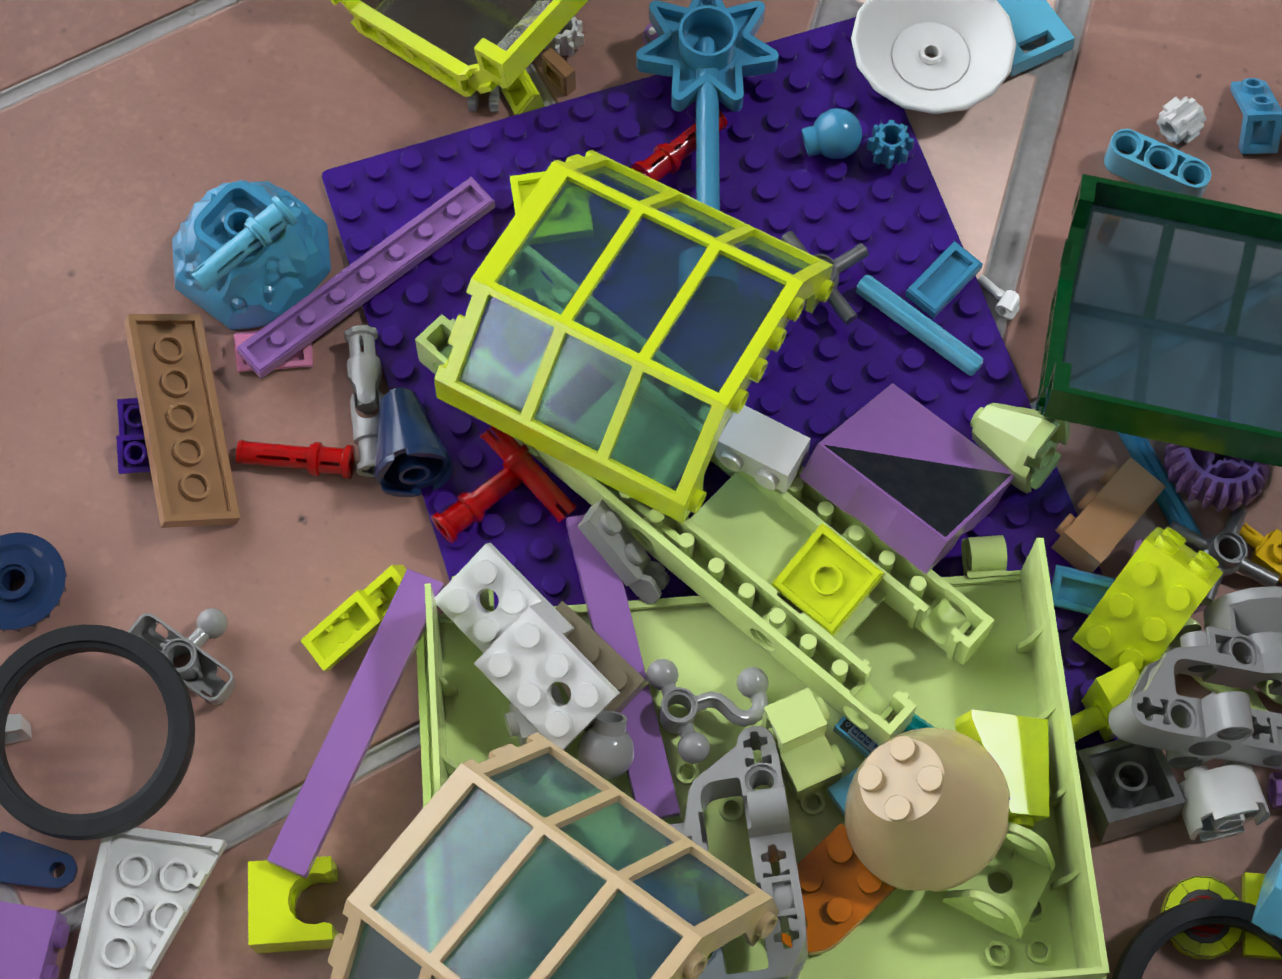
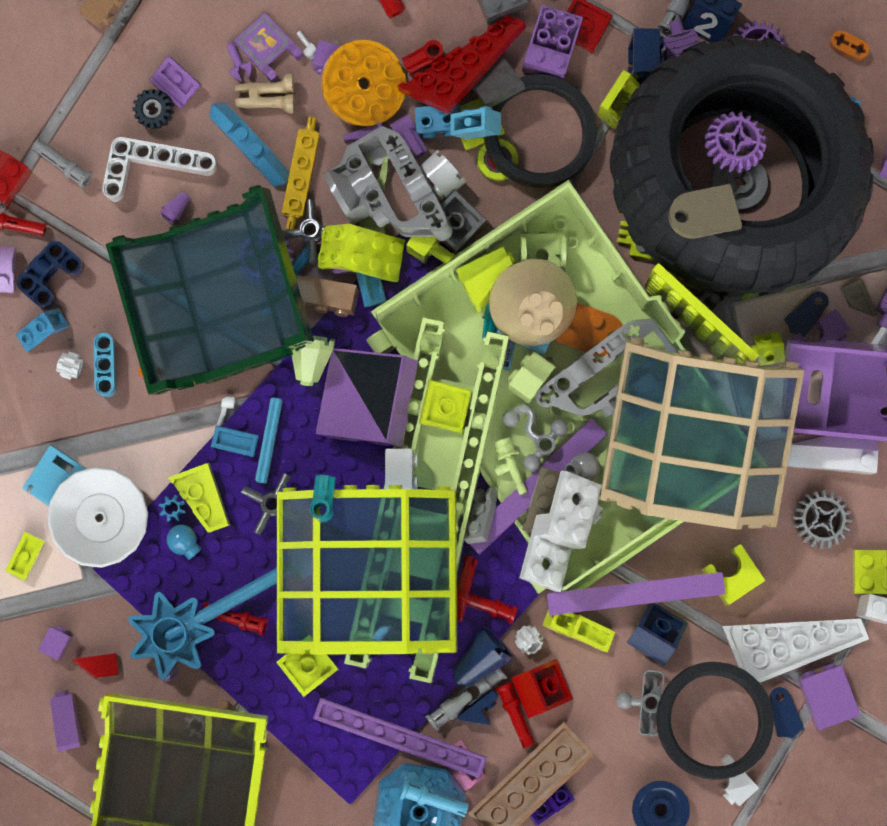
camera: 125 degrees left, 15 degrees up
(277, 733) = (657, 633): none -> dark blue slope
(308, 514) = (542, 688): none -> red slope
(332, 402) = (474, 713): none -> dark blue slope
(393, 532) = (529, 639): none -> white gear
(705, 645) = (506, 451): none -> yellowish green piece
(783, 277) = (323, 495): none -> teal piece
(892, 196) = (203, 496): none -> neon yellow wing

